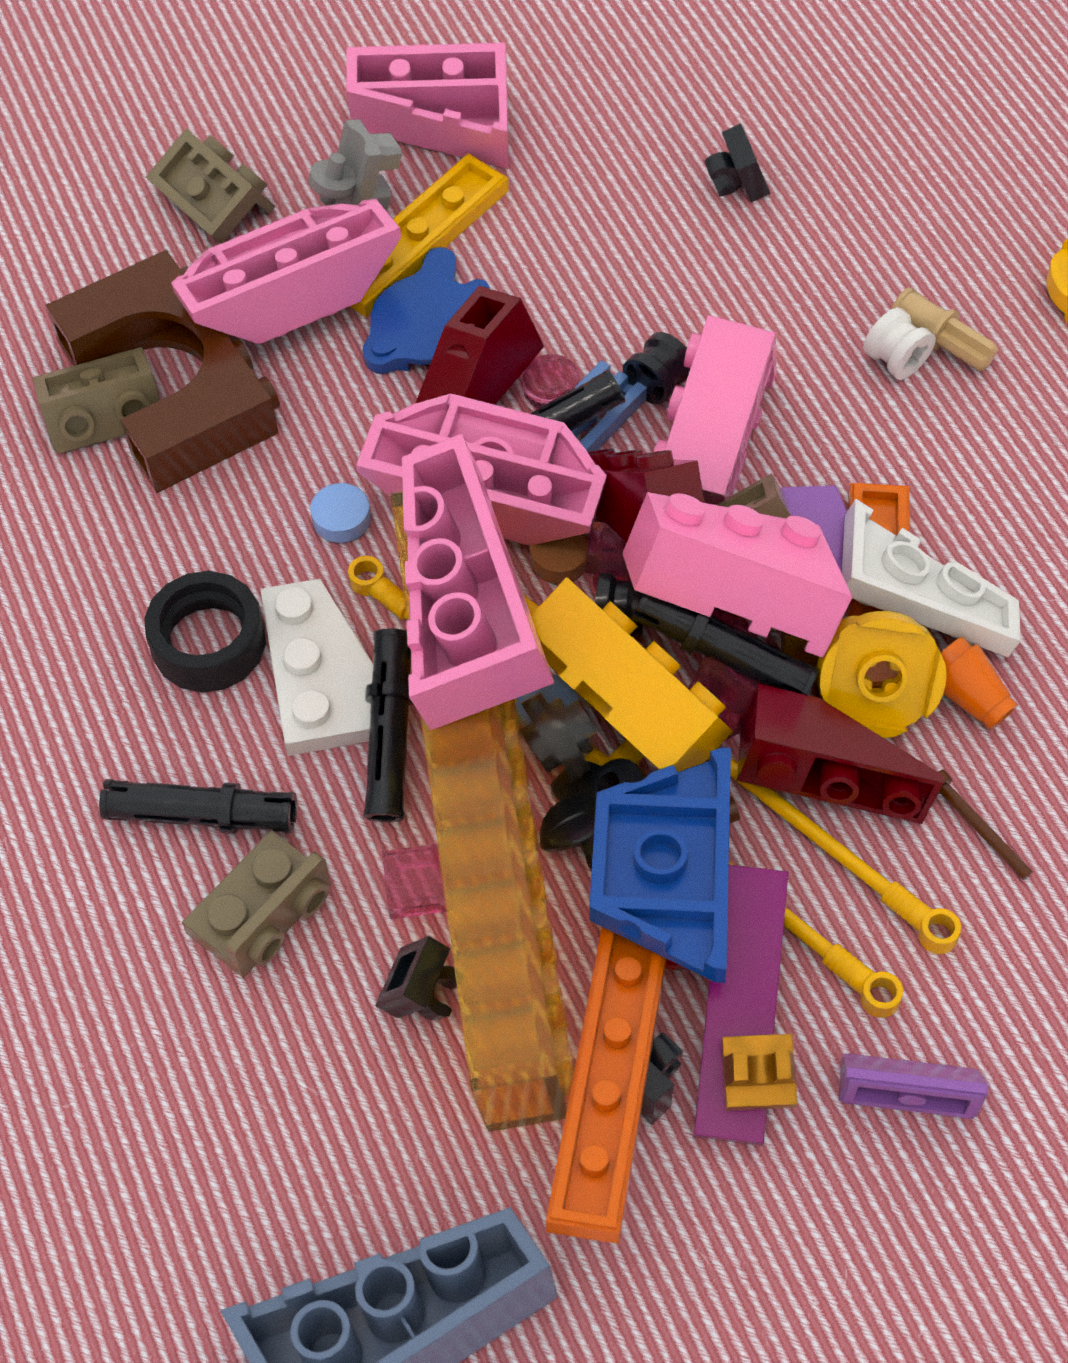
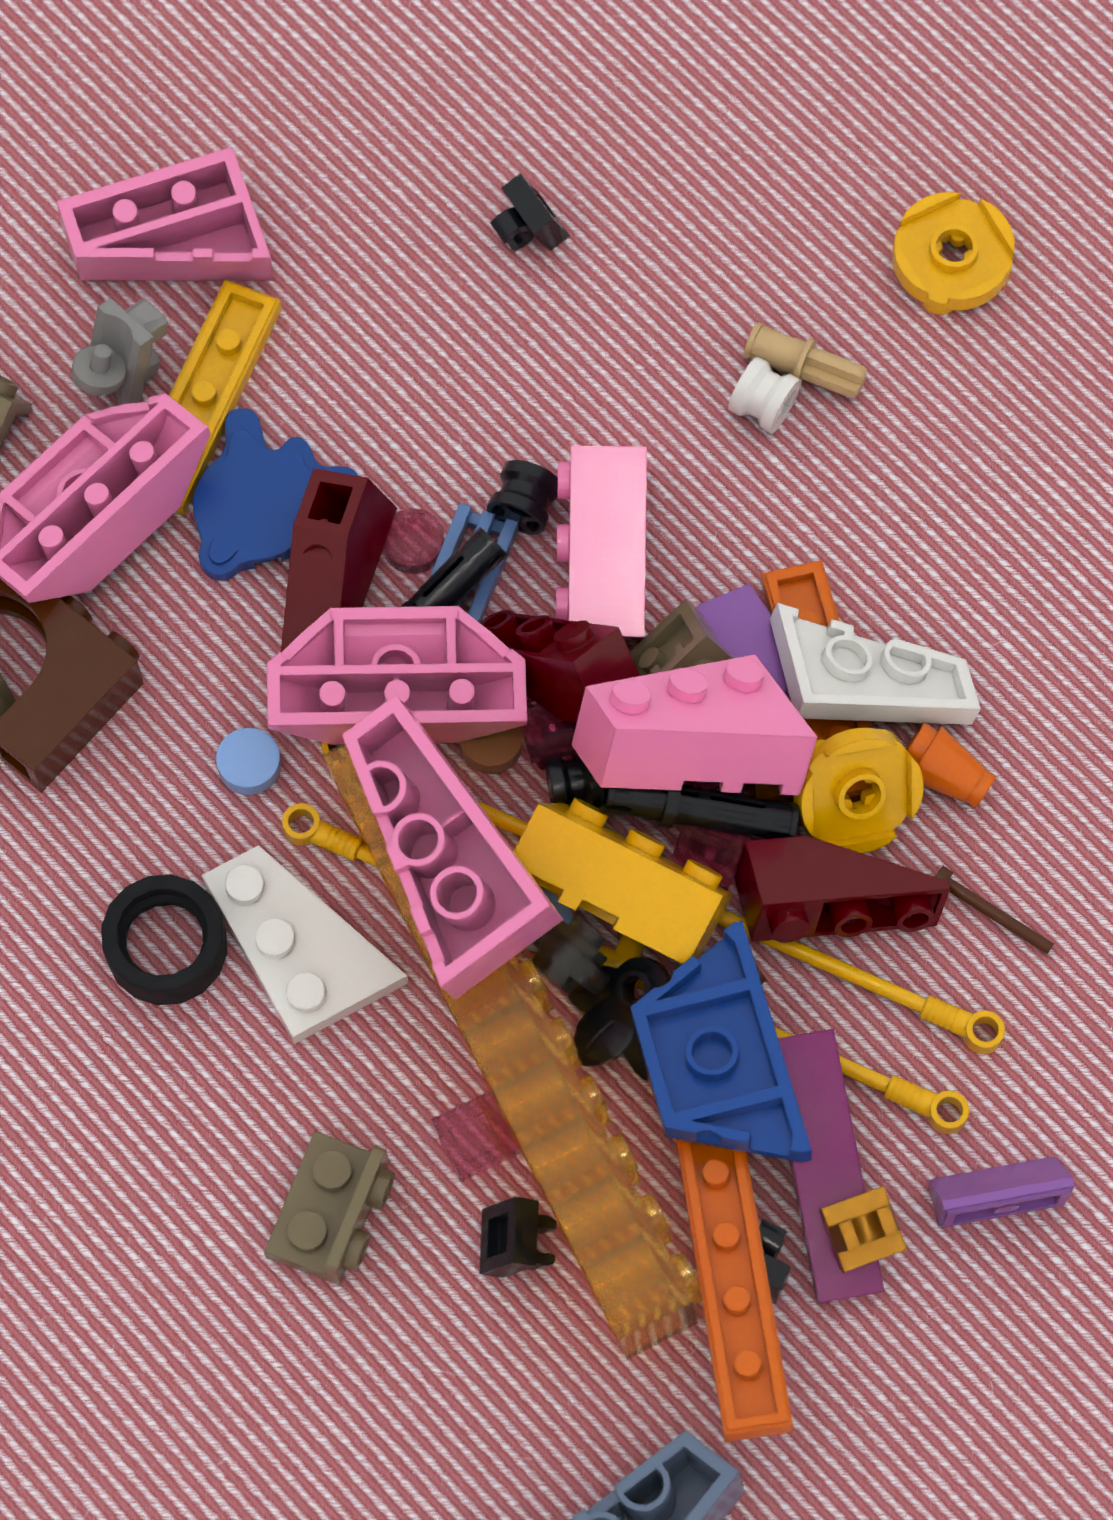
camera: 20 degrees left, 10 degrees up
(222, 807) = (232, 1128): black pin -> none
(388, 726) = (392, 987): black pin -> none

